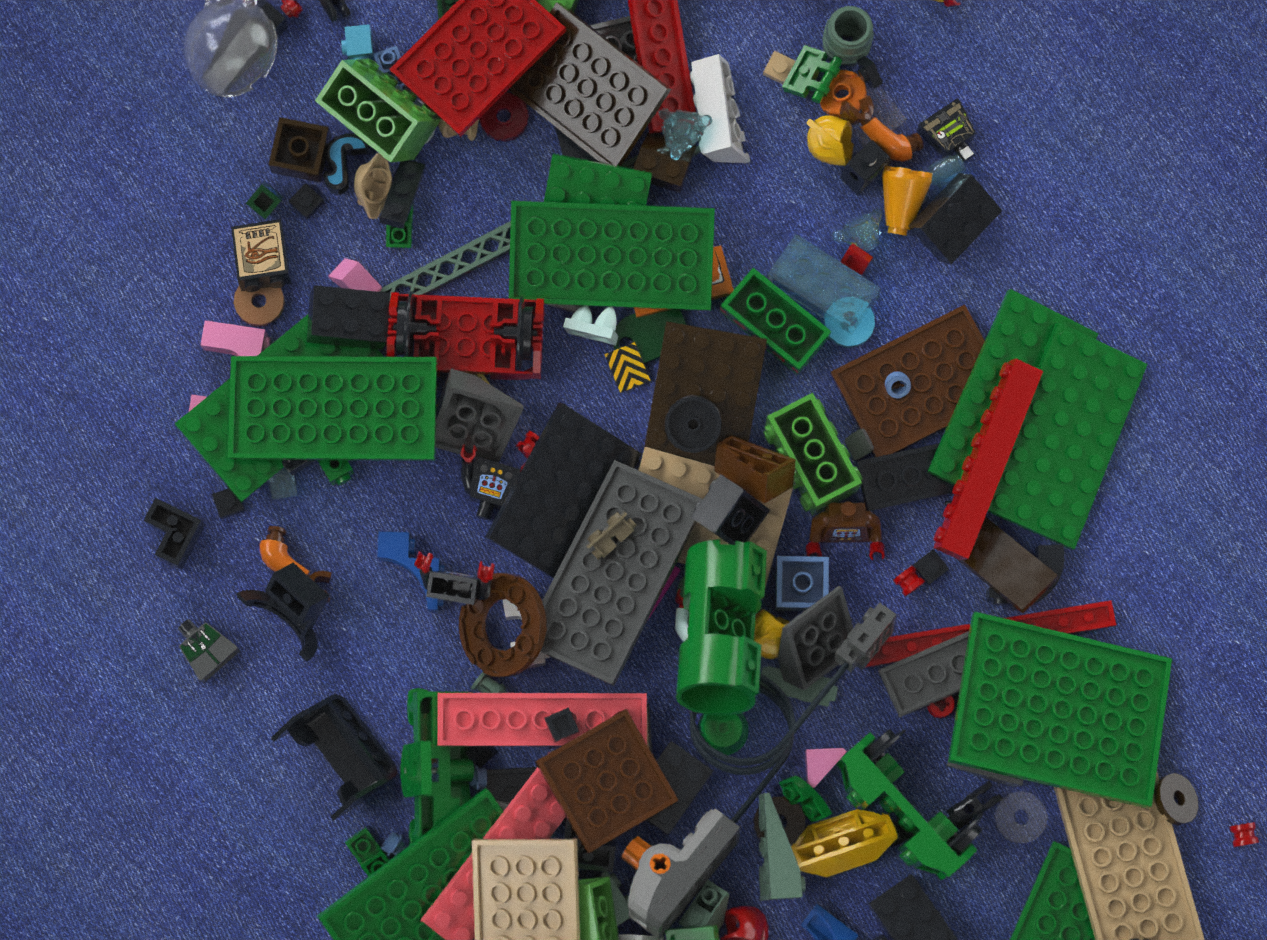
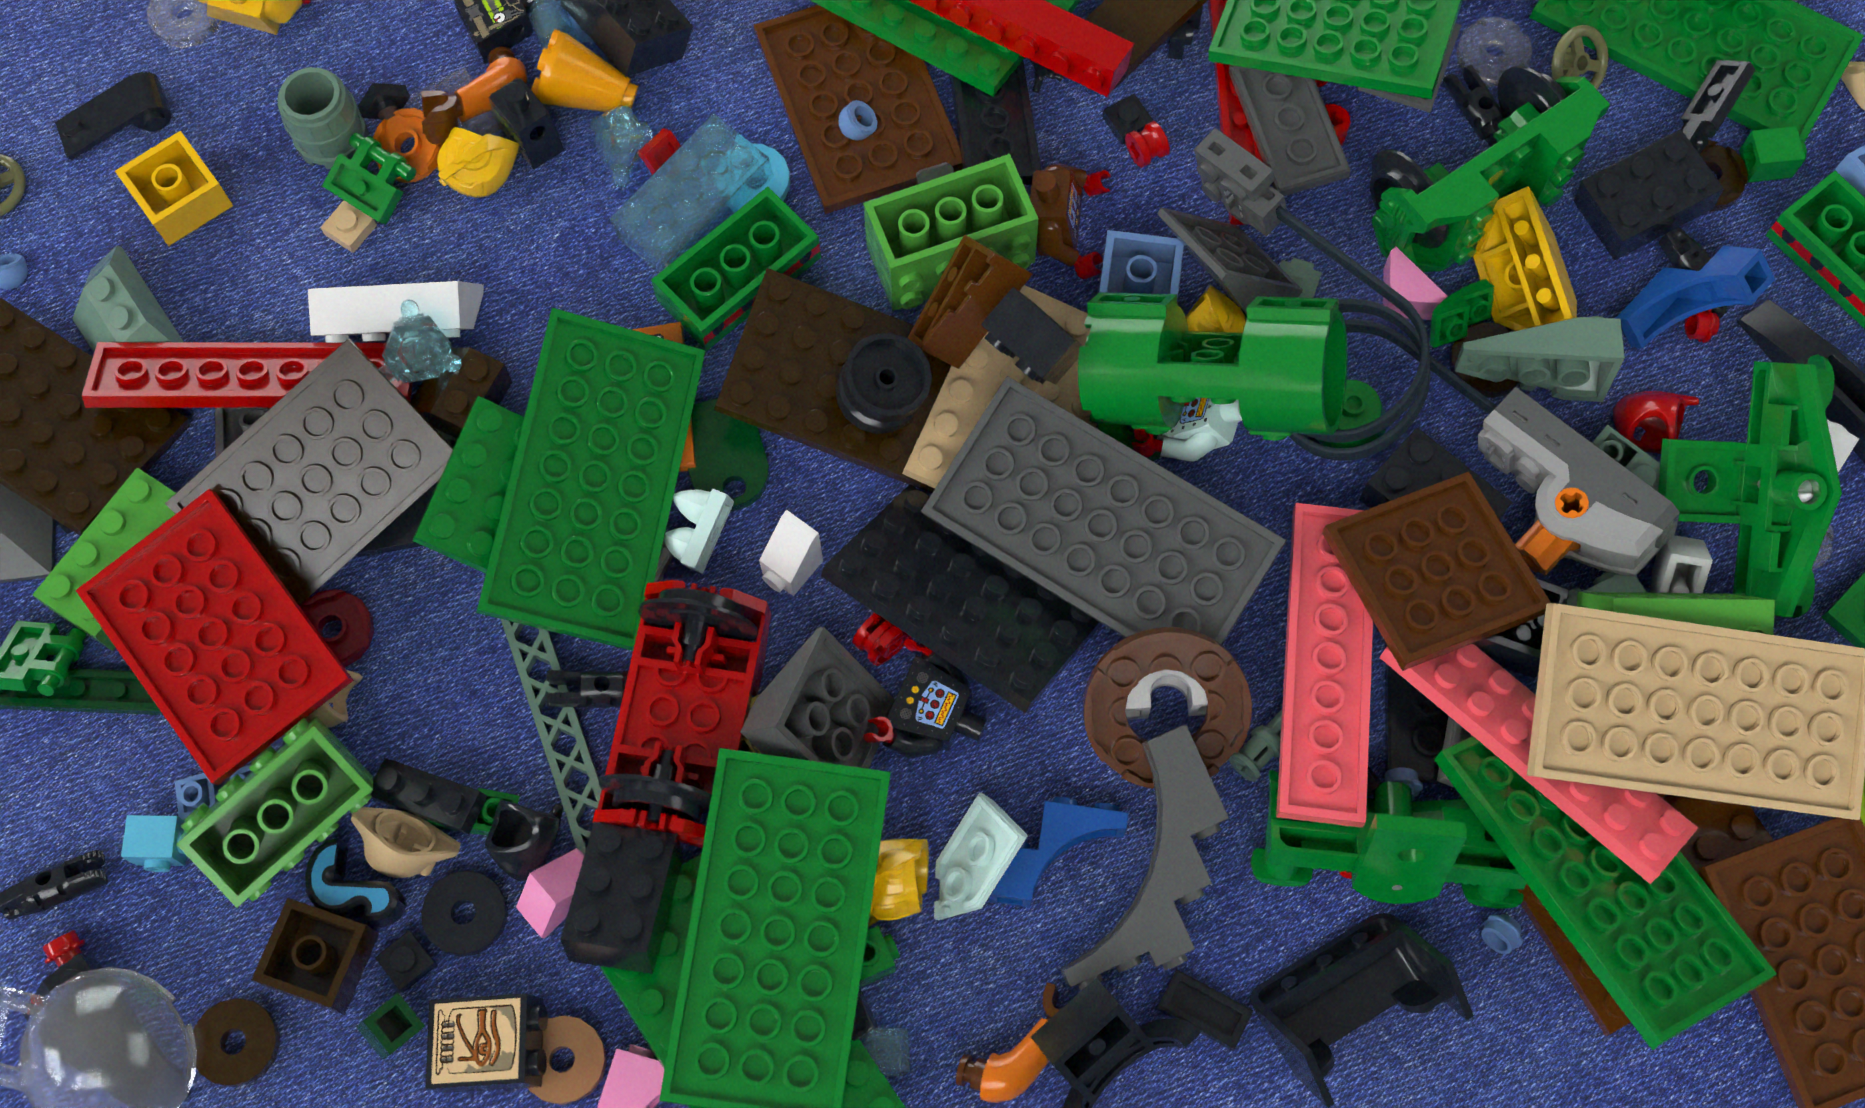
camera: 80 degrees left, 10 degrees down
(249, 129) = (255, 1057): none -> dark brown tile
(328, 669) = (1205, 1008): none -> black tile
(333, 215) = (444, 899): none -> black tile
(366, 851) = (1519, 973): green slope -> none
(372, 632) = (1152, 923): none -> dark grey arch
(383, 254) = (522, 838): none -> black piece
(383, 477) = (900, 879): none -> yellow helmet
(401, 522) = (975, 858): none -> light aqua tile
(454, 585) = (1100, 765): black torso -> none
(486, 275) = (589, 696): none -> black hinge
(561, 724) = (1344, 624): black plate -> none
(579, 384) = (790, 554): none -> white slope
(616, 527) = (1031, 507): dark tan hinge -> none
(627, 367) = (771, 489): sticker -> none
(1013, 871) = (1574, 61): none -> olive piece

